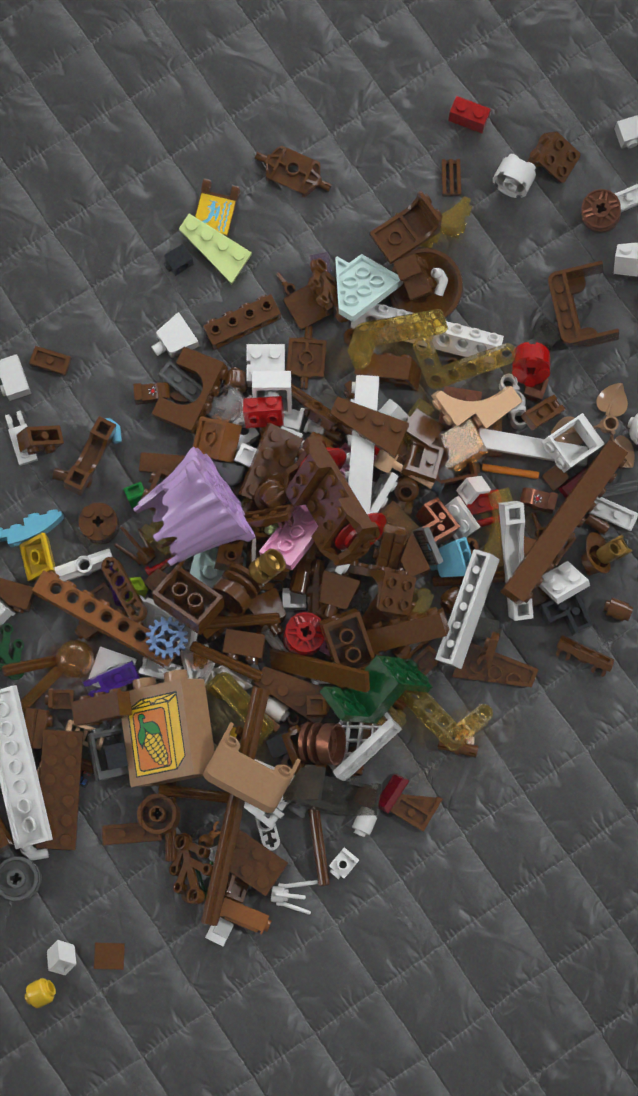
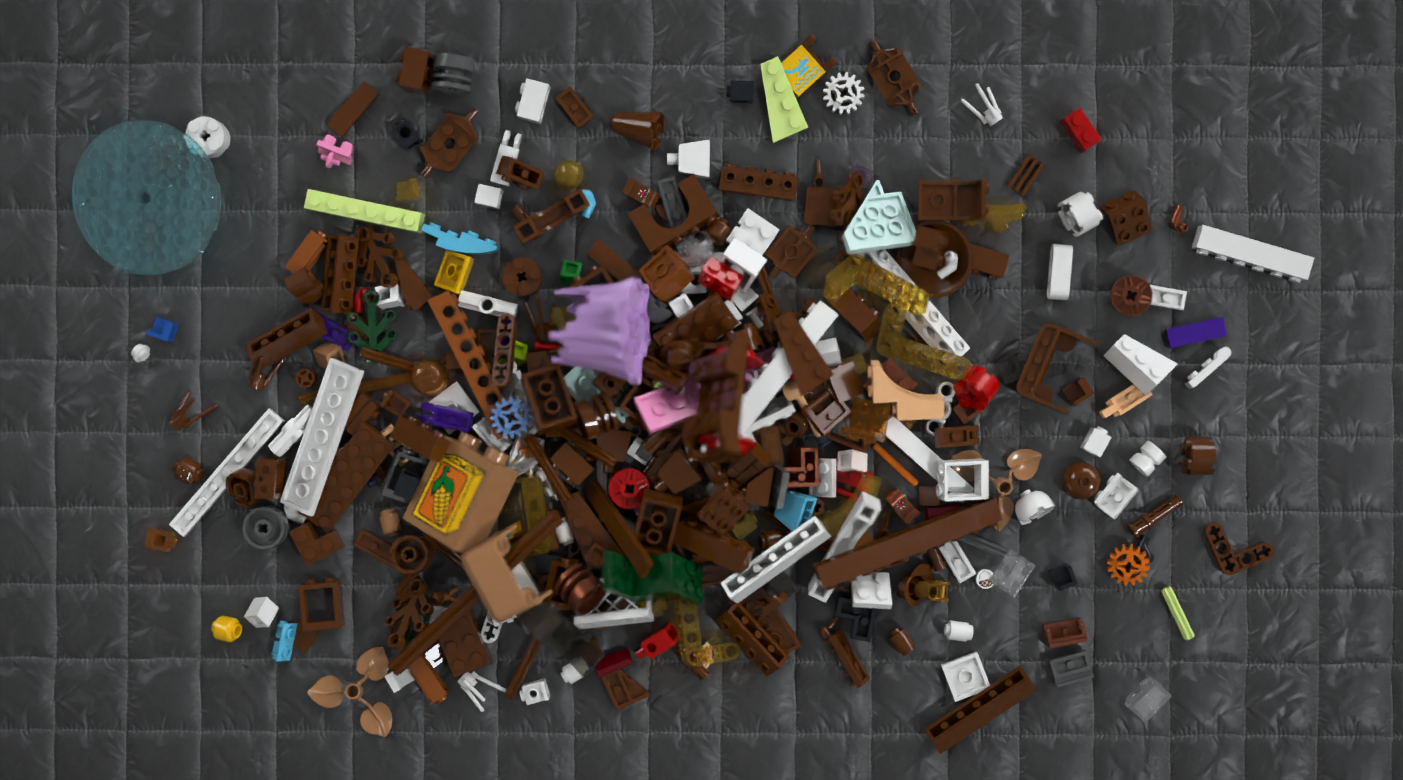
camera: 35 degrees right, 10 degrees up
(26, 477) = (488, 196): none -> white panel
(71, 869) = (312, 546): none -> reddish brown brick
(81, 417) = (569, 174): none -> clear yellow hair
(94, 961) = (283, 648): none -> medium azure hinge
(114, 340) = (640, 127): none -> reddish brown cone
(120, 932) = (339, 620): none -> reddish brown window
(122, 803) = (390, 522): none -> medium nougat brick
(187, 938) = (329, 692): none -> medium nougat plant
(254, 208) = (850, 98): none -> white gear
(267, 566) = (631, 417): pearl gold wheel -> none
(391, 148) = (993, 113): none -> white plant
(420, 740) = (663, 638): none -> red torso
(471, 261) = (989, 262): none -> reddish brown brick
(494, 691) = (752, 638): none -> reddish brown brick
(532, 232) = (1059, 272): none -> white beam
(550, 646) = (825, 630): none -> reddish brown hand
(593, 134) = (1176, 221): none -> copper arm
(613, 314) = (1077, 391): none -> reddish brown panel

